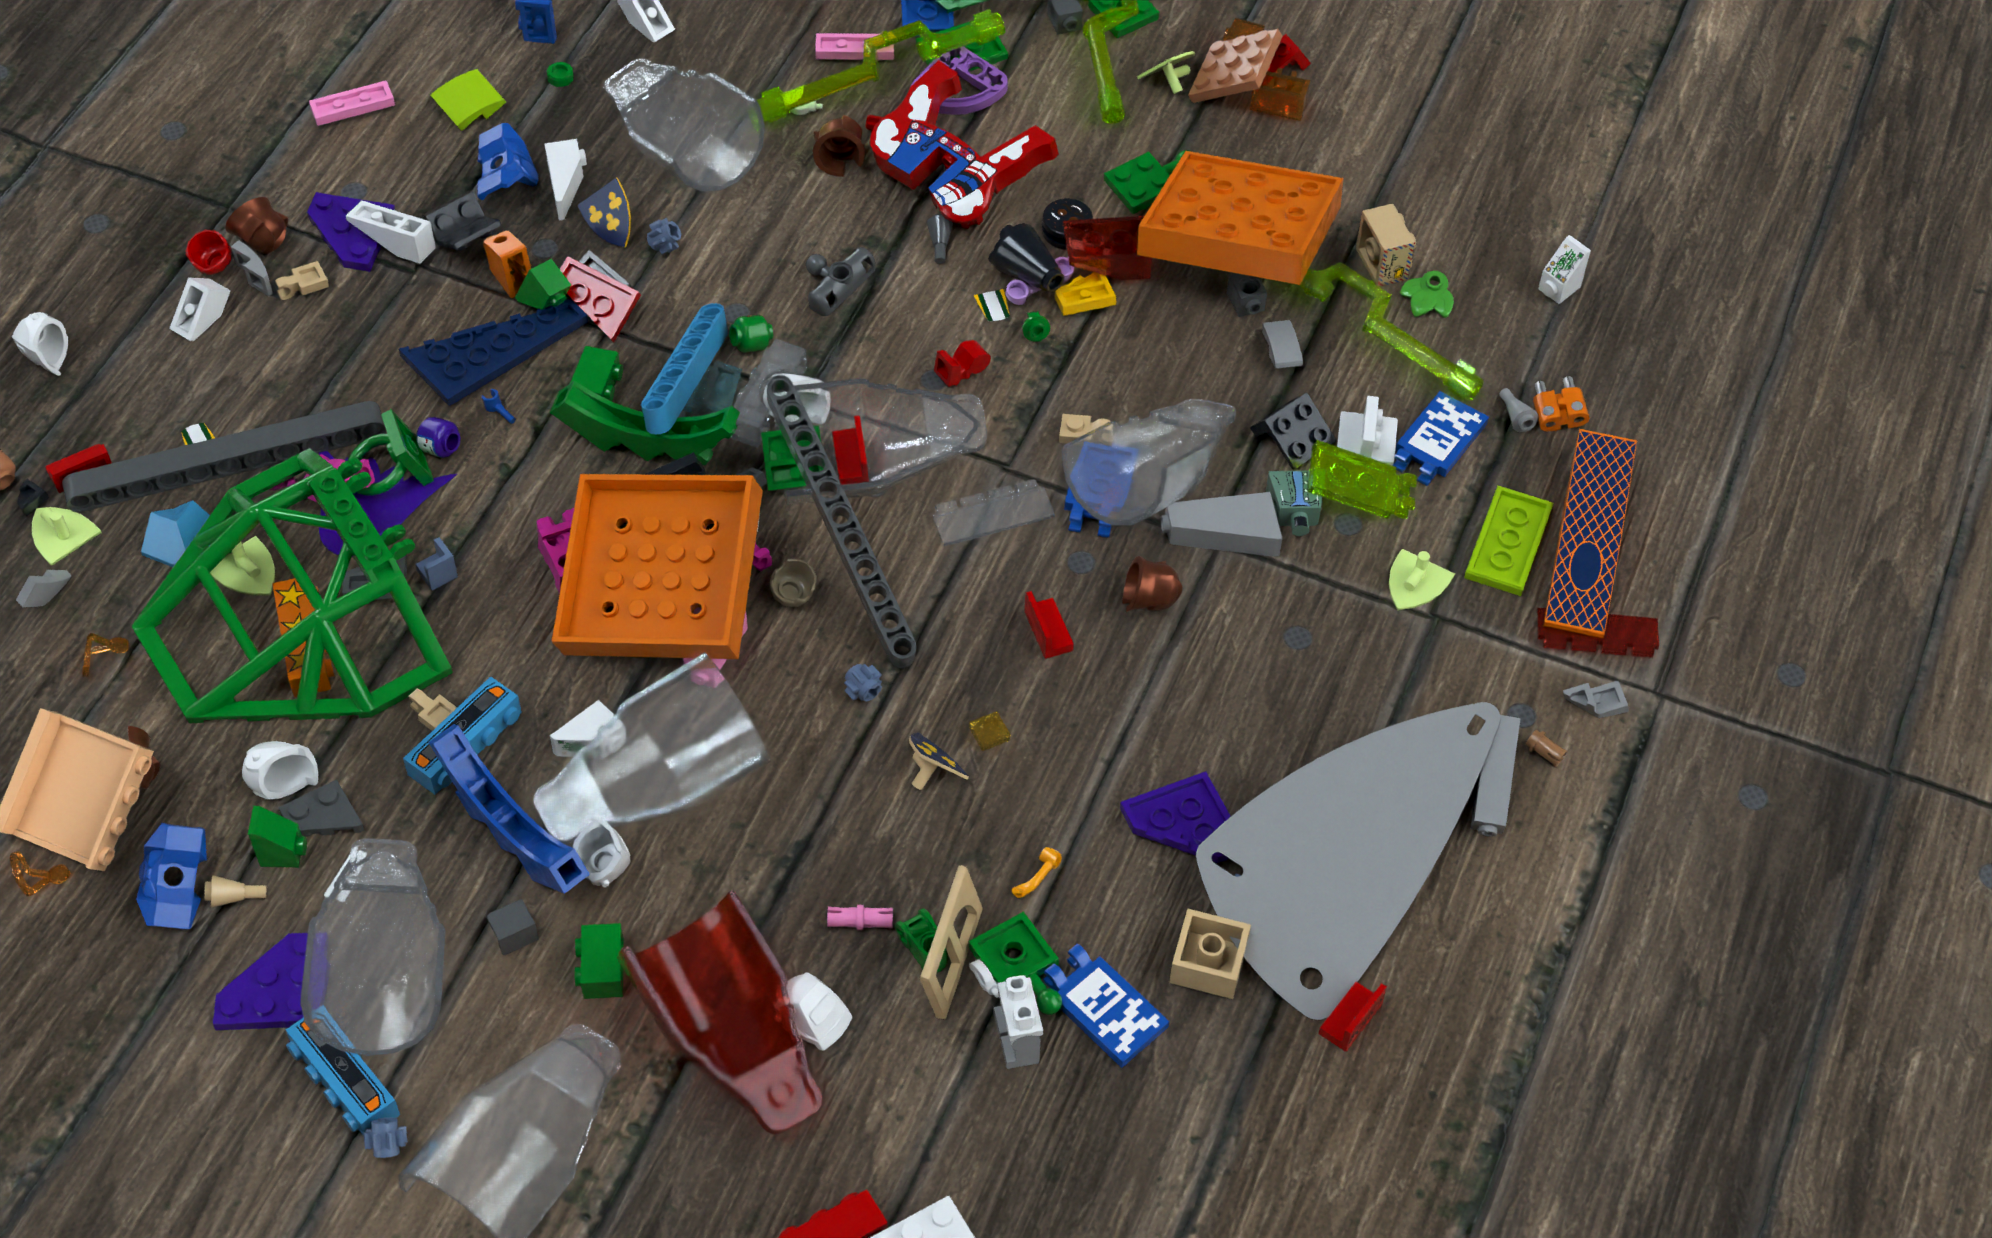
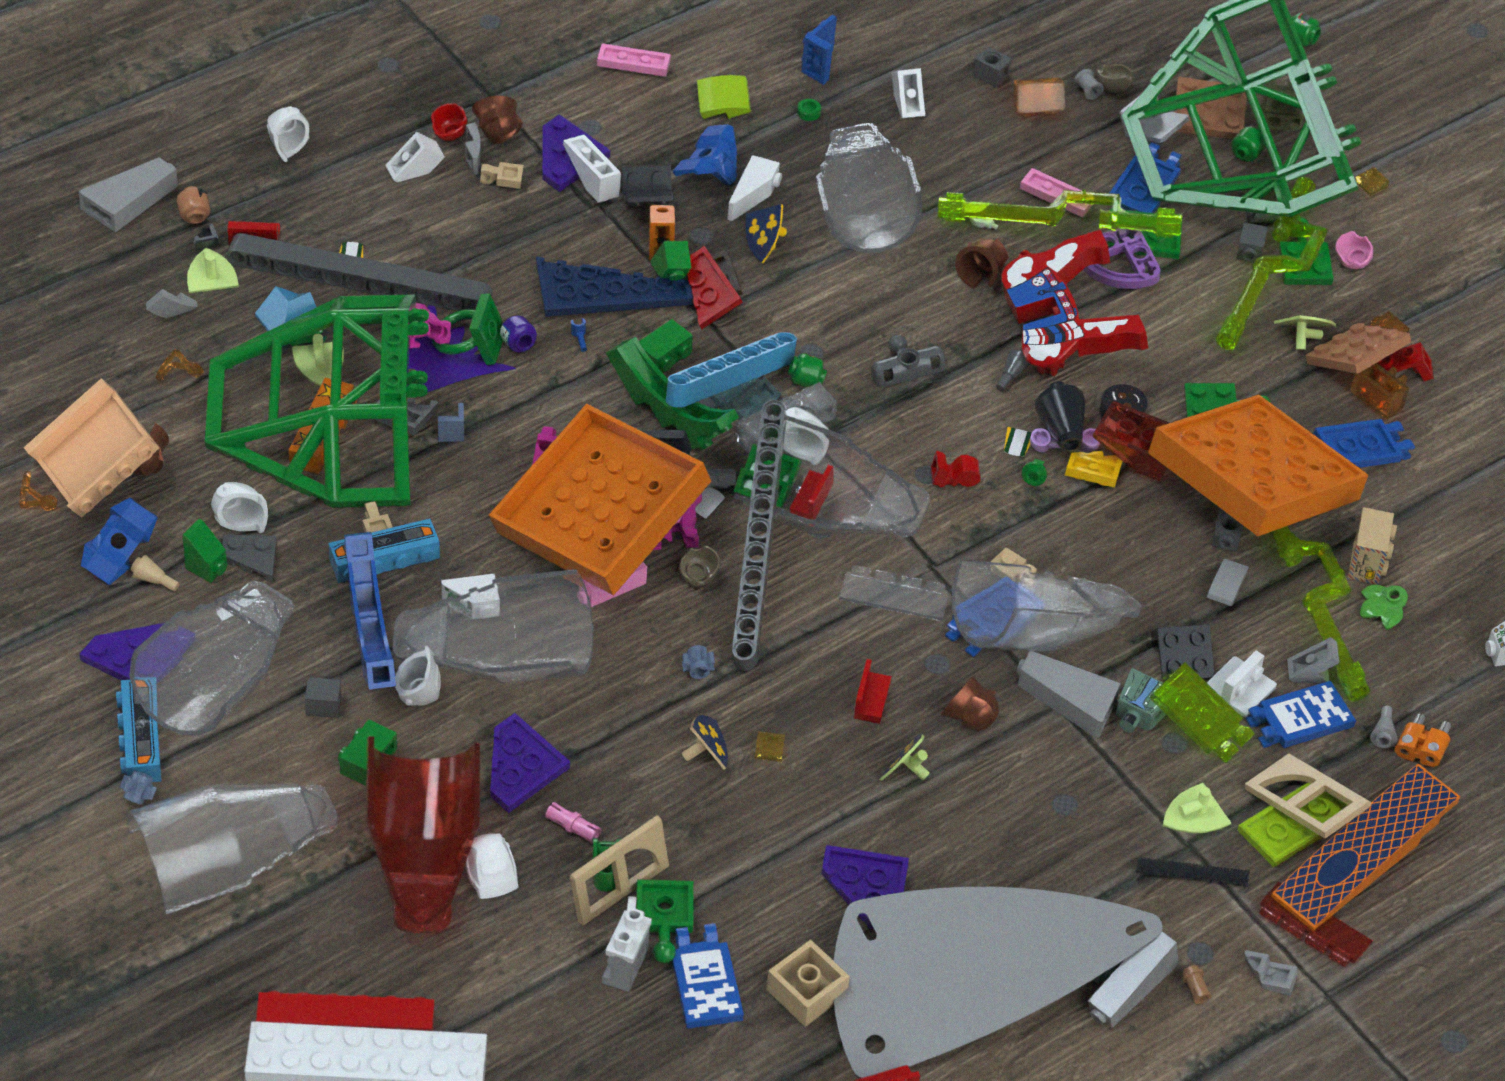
camera: 30 degrees right, 5 degrees down
(663, 236) = (794, 267): sand blue gear -> none
(766, 881) = (522, 763): none -> dark purple plate
(1051, 860) = (745, 859): light orange piece -> none
(1129, 666) = (912, 762): none -> yellowish green shield
(1305, 148) = (1367, 442): none -> blue tile
(1415, 380) = (1313, 663): none -> light grey slope
(1458, 639) = (1193, 871): none -> black axle
(1471, 492) = (1292, 768): none -> tan window

